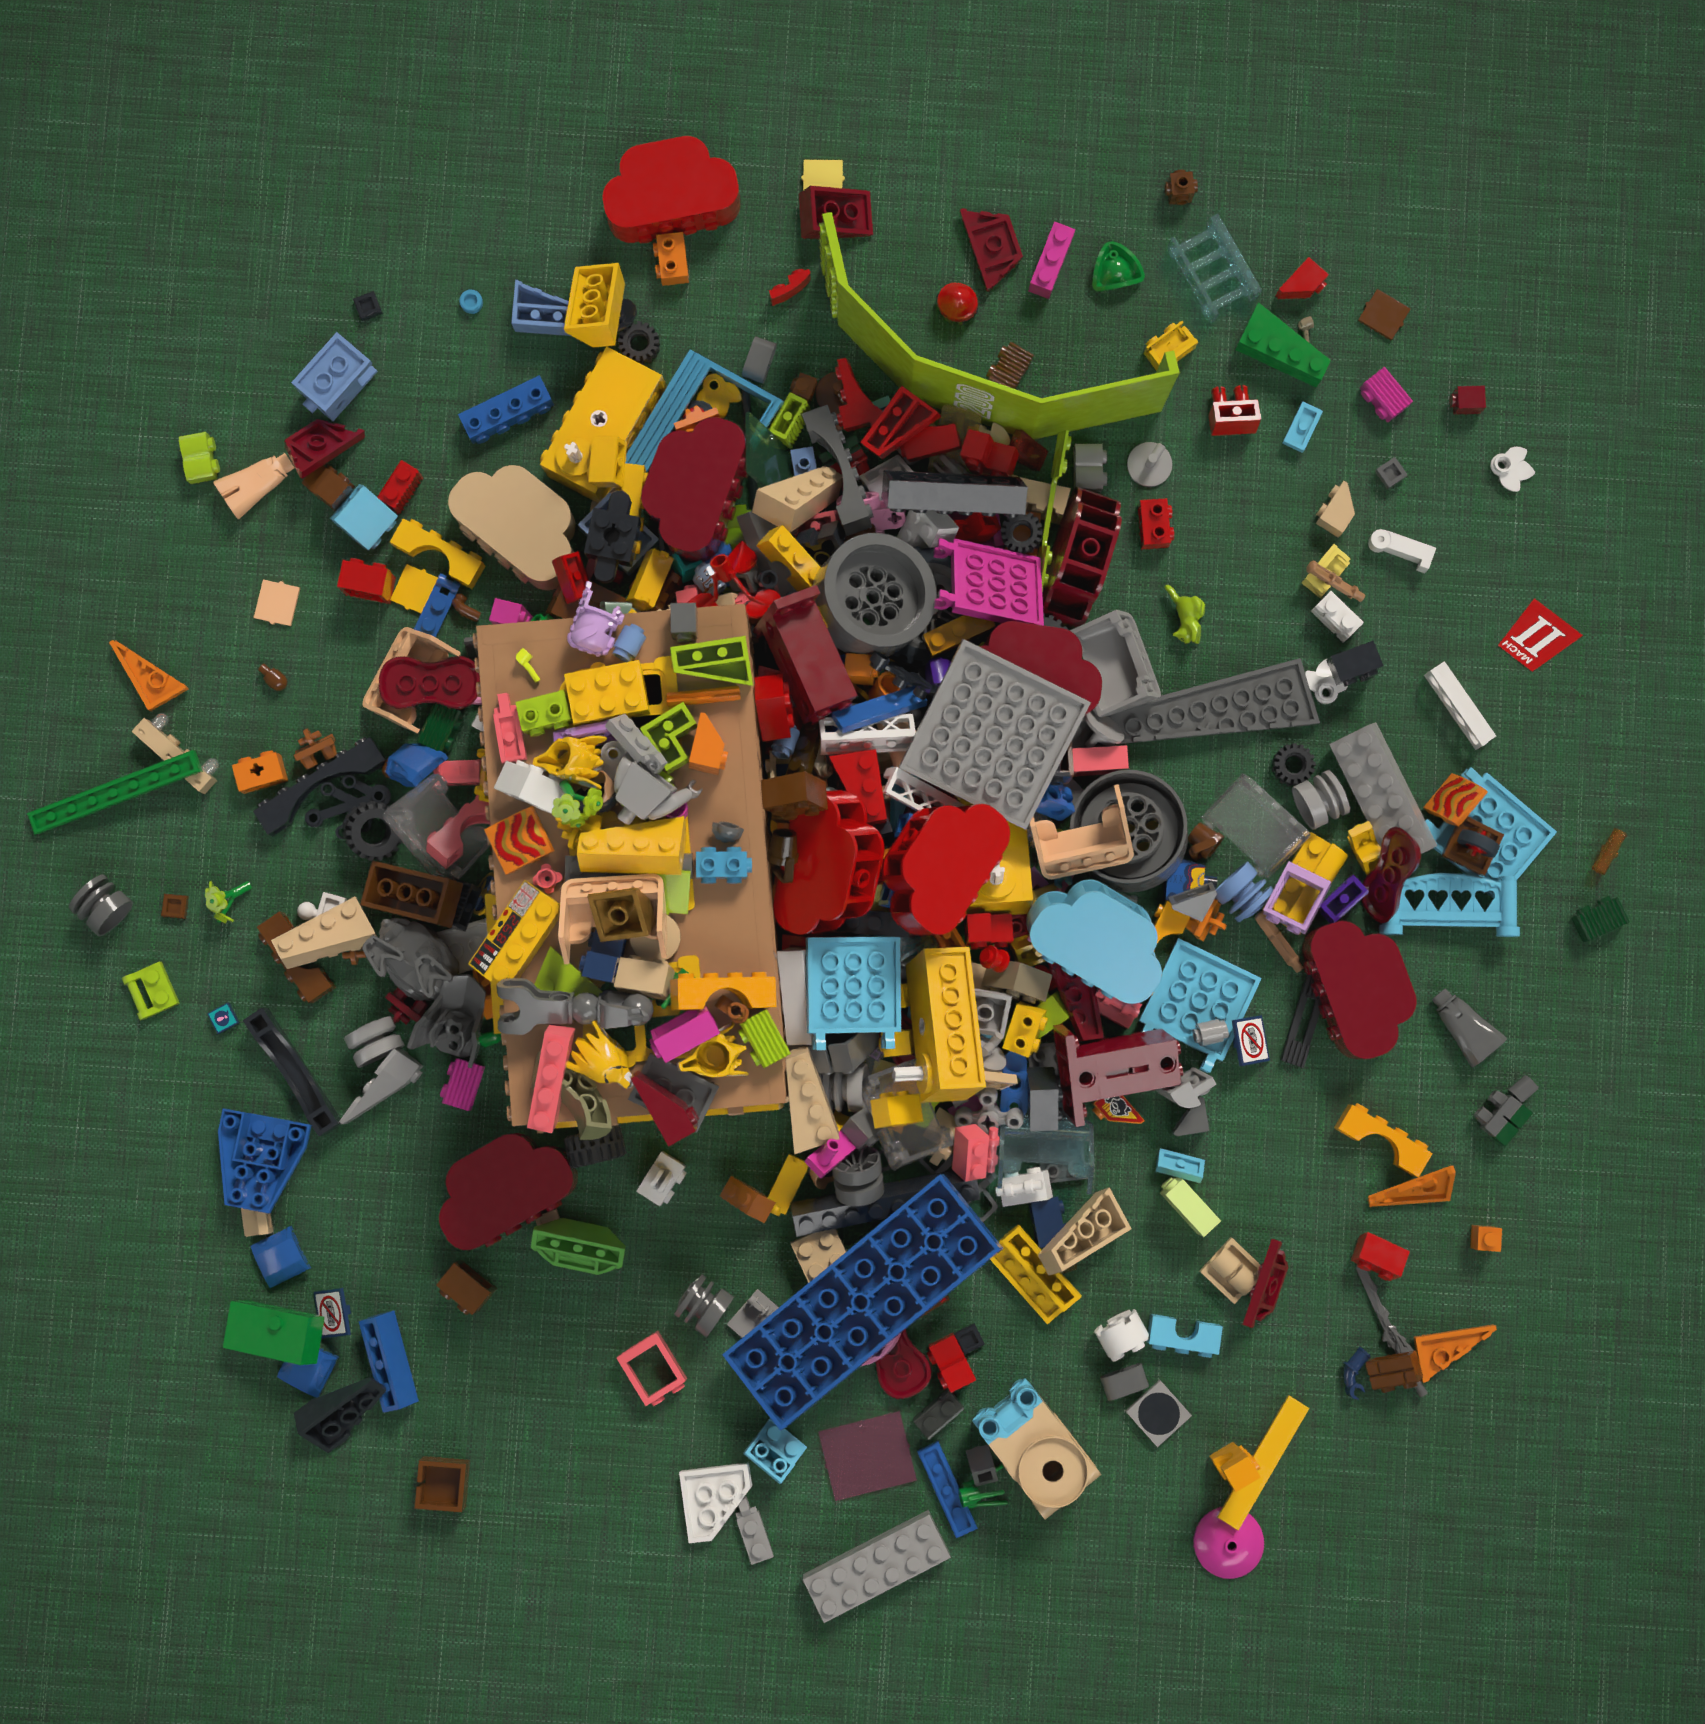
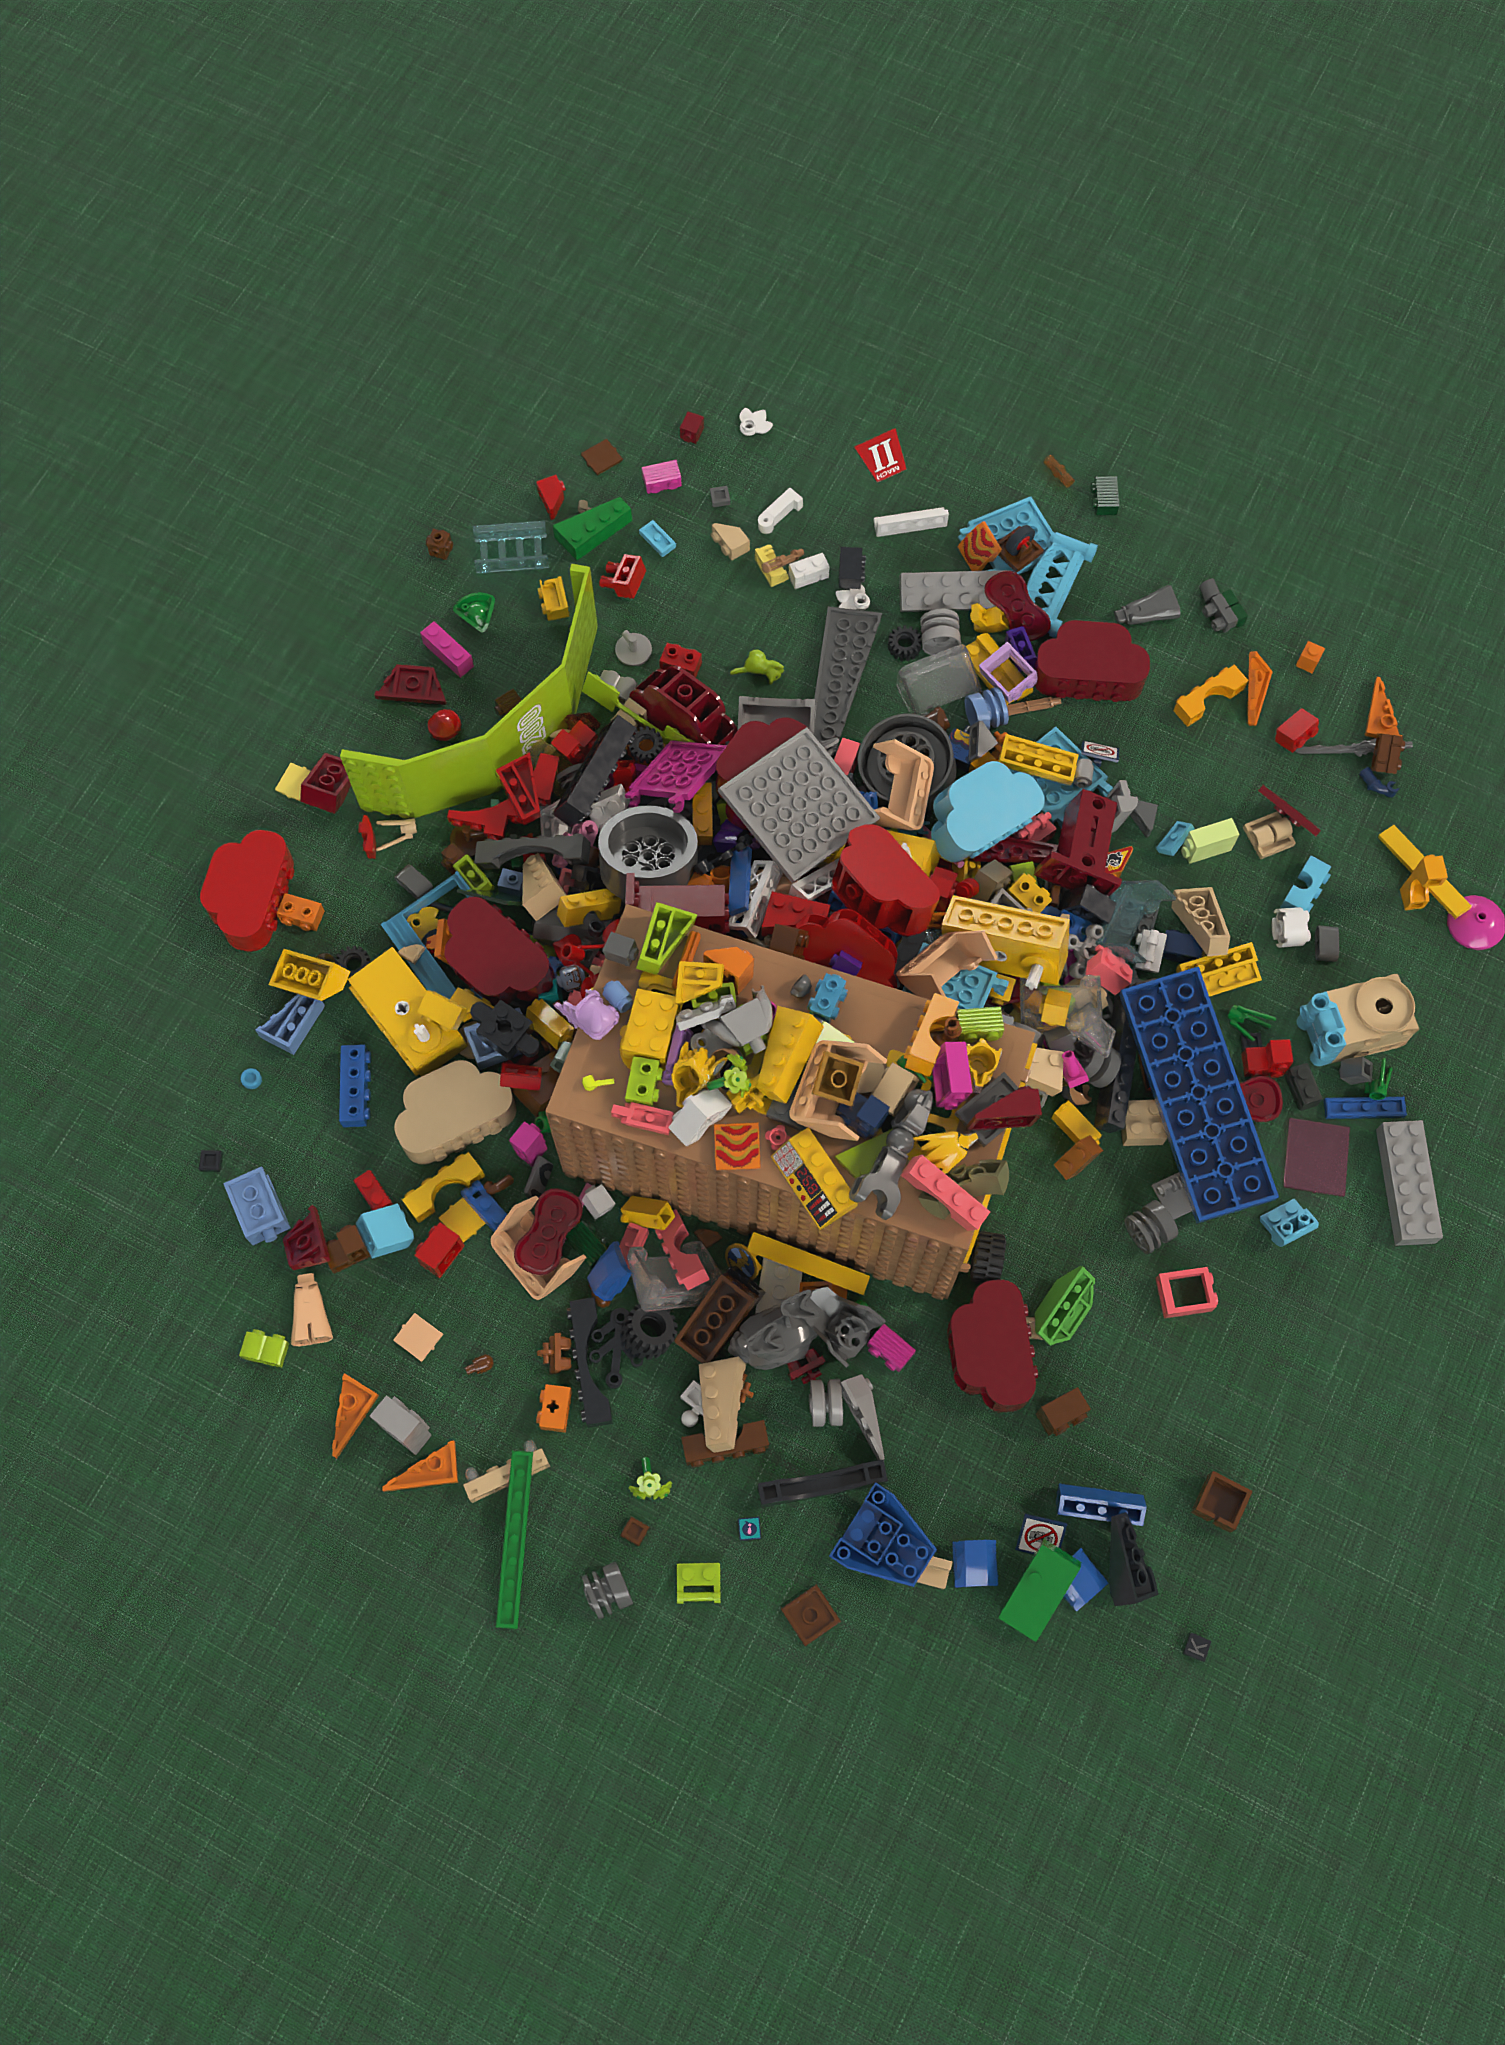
camera: 65 degrees left, 15 degrees down
(165, 1114) = (810, 1615): none -> reddish brown tile
(167, 630) = (401, 1423): none -> light grey brick
(182, 573) = (354, 1405): none -> orange wing
(290, 1510) = (1197, 1647): none -> black tile
(662, 1178) = (1034, 1221): white brick -> none
(669, 719) = (697, 980): none -> yellow wing
(670, 398) = (412, 952): none -> tan tile
(712, 1497) = (1309, 1287): white plate -> none
(753, 1532) = (1348, 1269): light grey hinge -> none
(807, 866) = (845, 963): none -> dark purple brick
(820, 321) = (407, 826): none -> tan plant
(875, 964) = (945, 959): none -> light nougat windscreen
(877, 1161) = (1092, 1030): none -> clear slope
(994, 1314) = (1239, 1014): none -> green plant
(1042, 1055) = (1054, 895): none -> reddish brown tile
(1158, 1413) = (1359, 931): black tile -> none
(1201, 975) = (1038, 760): none -> yellow brick
(1297, 1052) = (1119, 728): black container -> none

